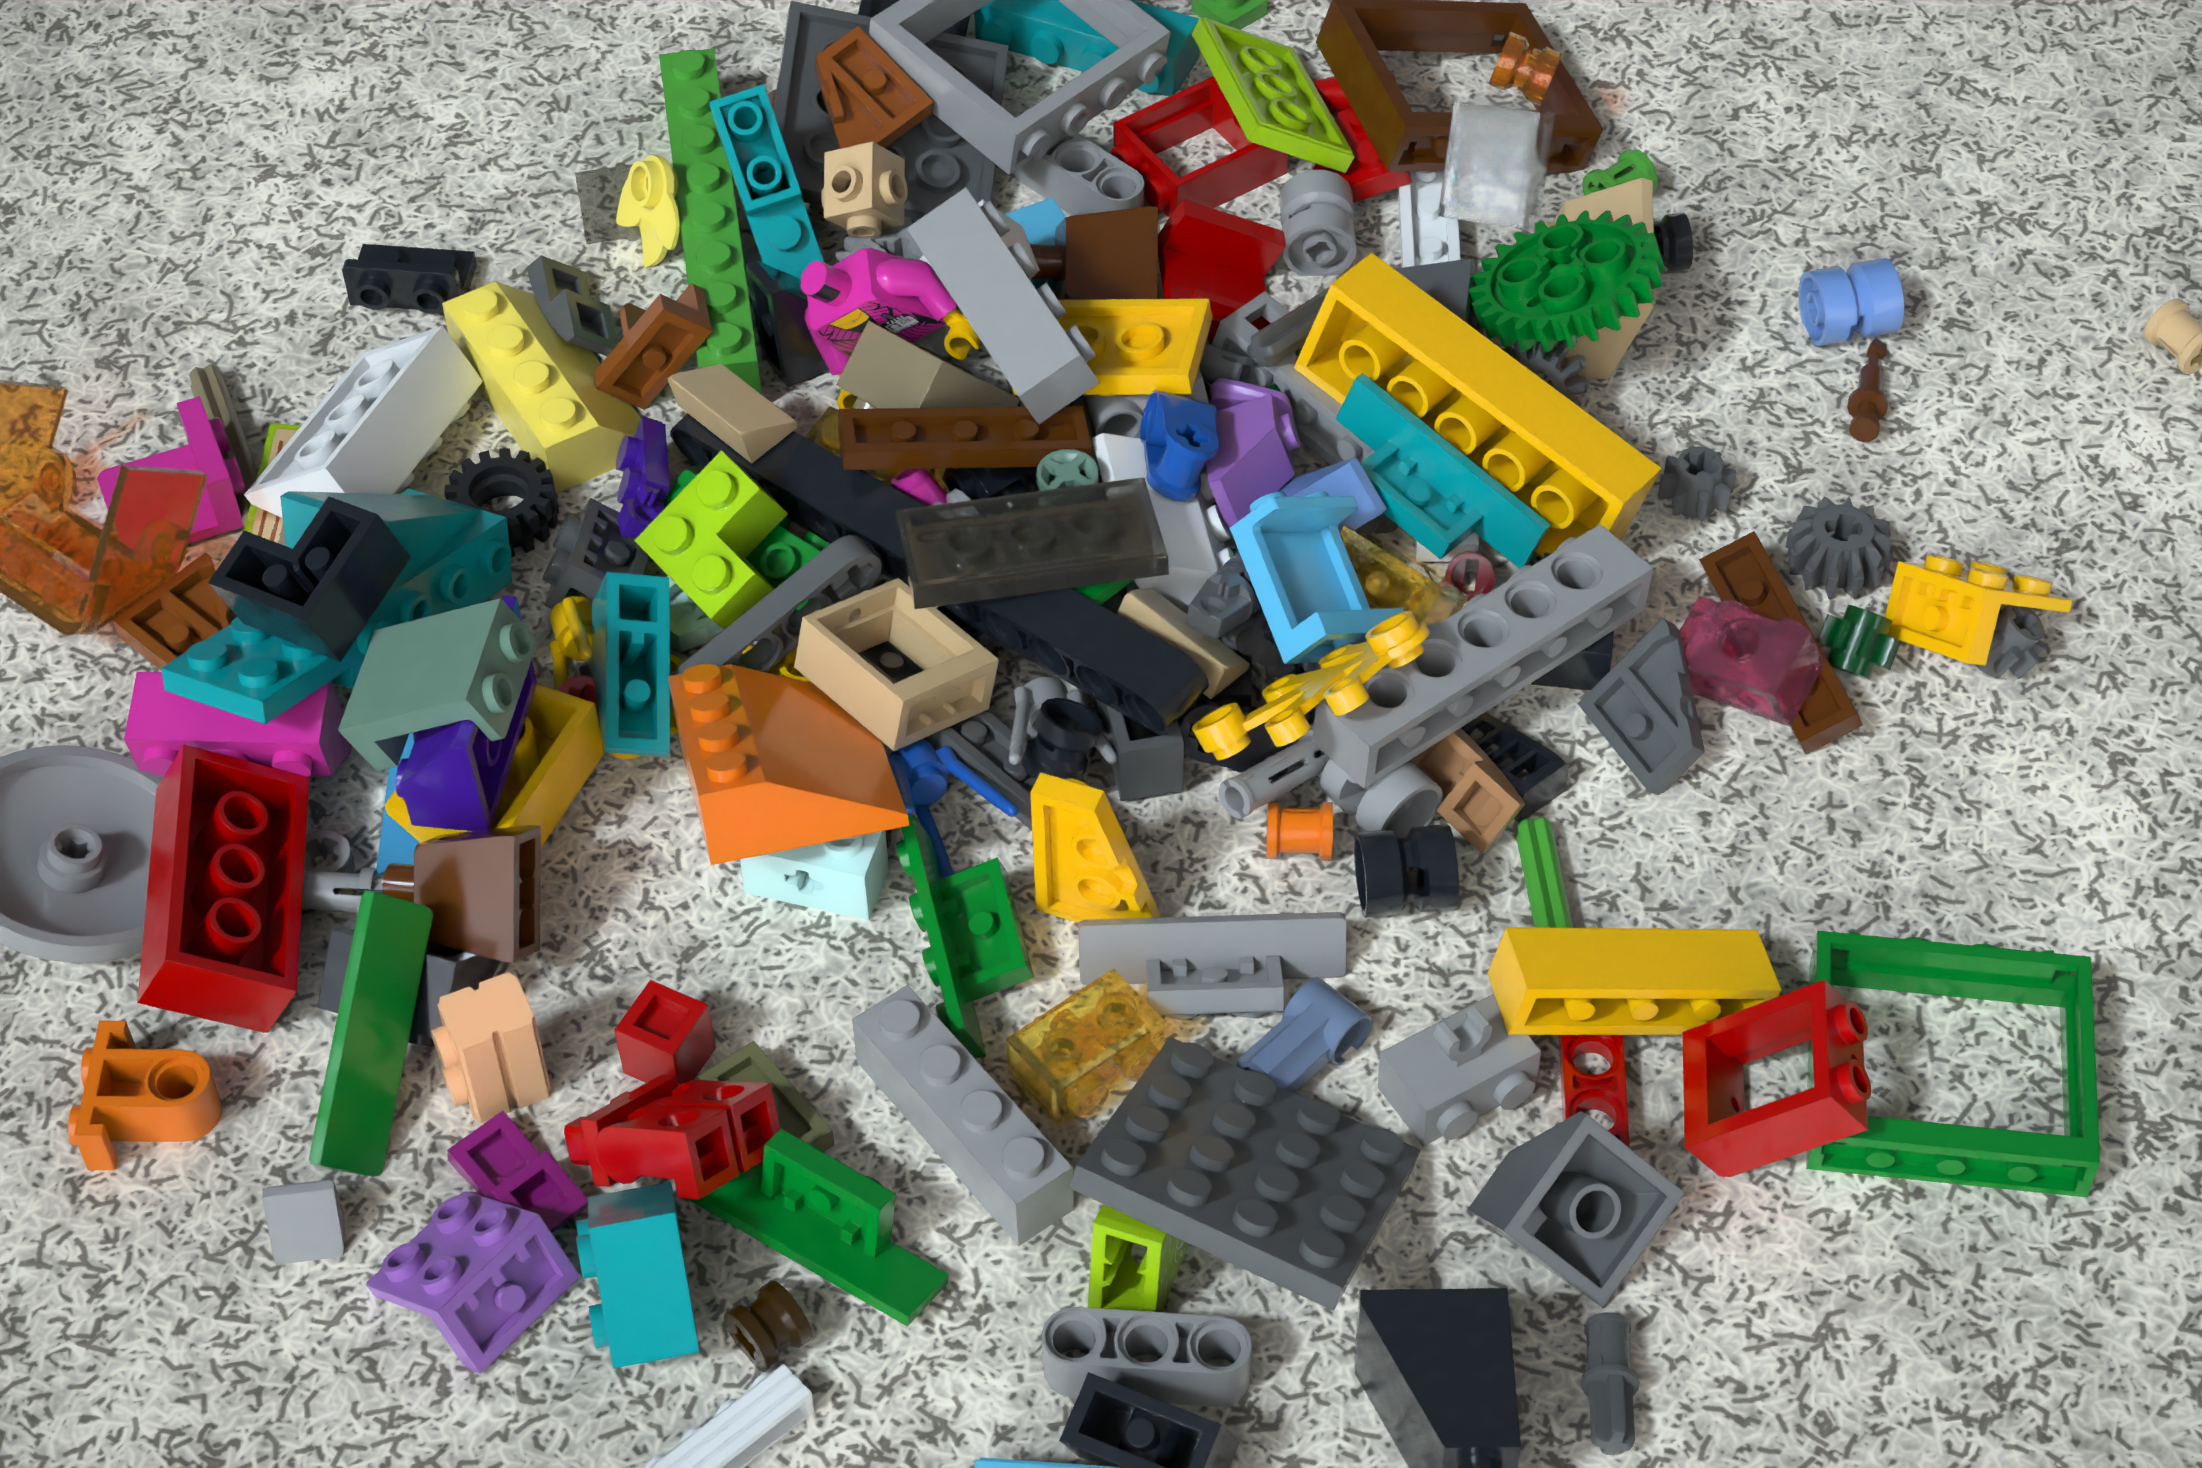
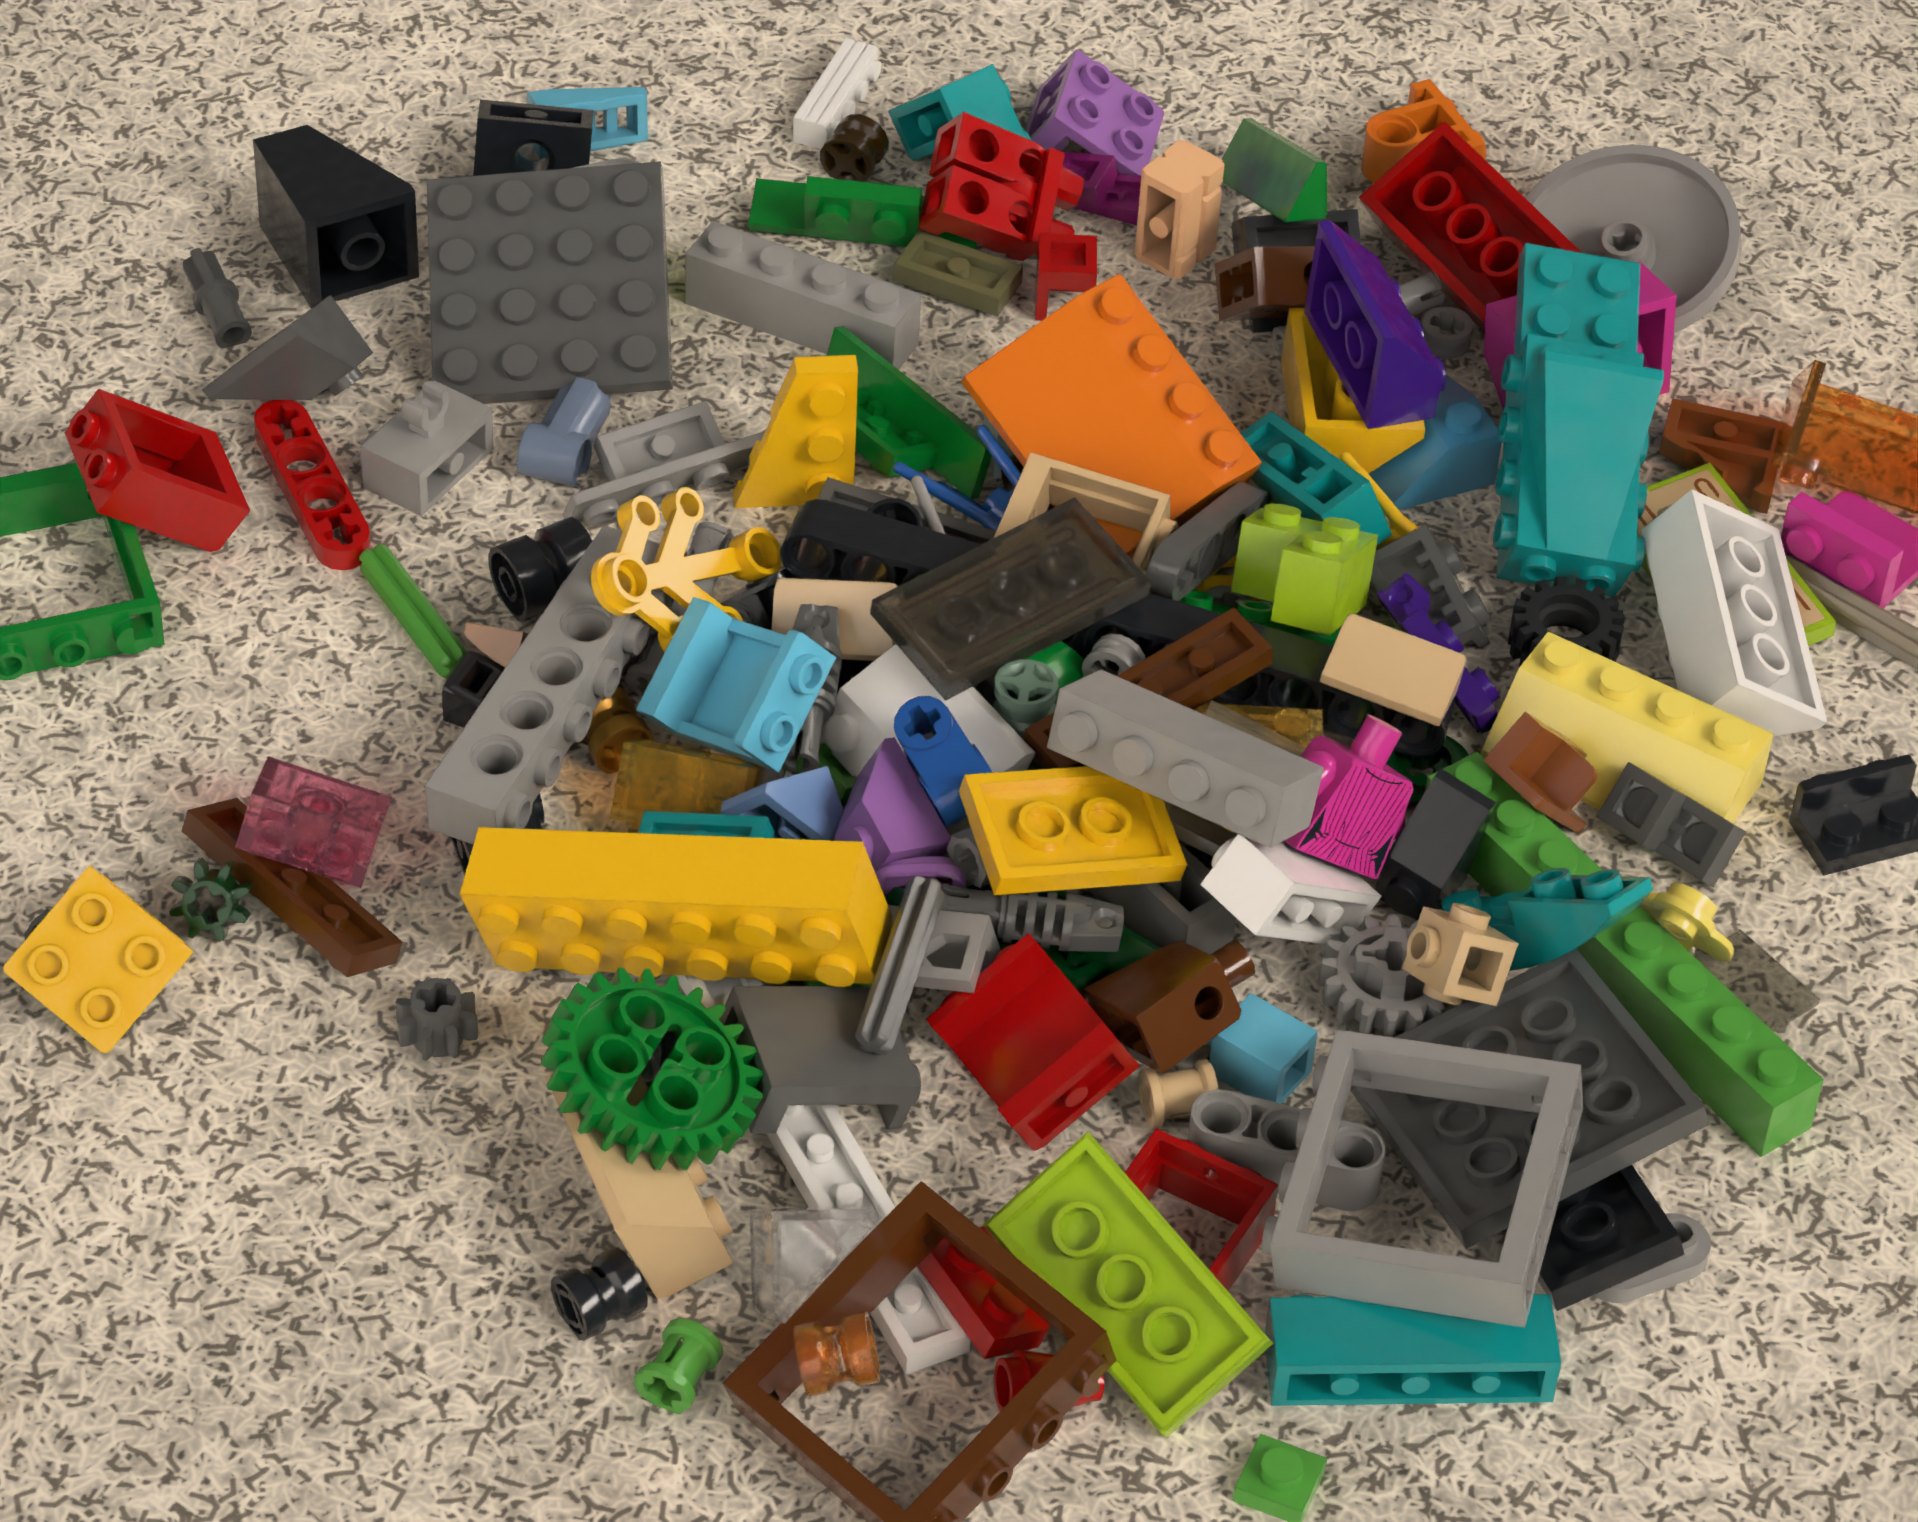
camera: 150 degrees right, 5 degrees down
(305, 1221) = (1227, 115): light grey slope -> none
(322, 586) = (1561, 291): black brick -> none
(435, 675) = (1400, 276): sand green panel -> none
(867, 92) = (1549, 1036): dark orange wing -> none
(1085, 1048) = (737, 371): clear yellow brick -> none
(1318, 223) = (978, 1162): light grey wheel -> none
(1626, 979) = (304, 516): yellow brick -> none
(1649, 709) = (380, 762): dark grey wing -> none
(1839, 547) = (264, 998): dark grey gear -> none
(1861, 300) = (356, 1274): medium blue wheel -> none
(1868, 402) = (290, 1189): reddish brown piece -> none

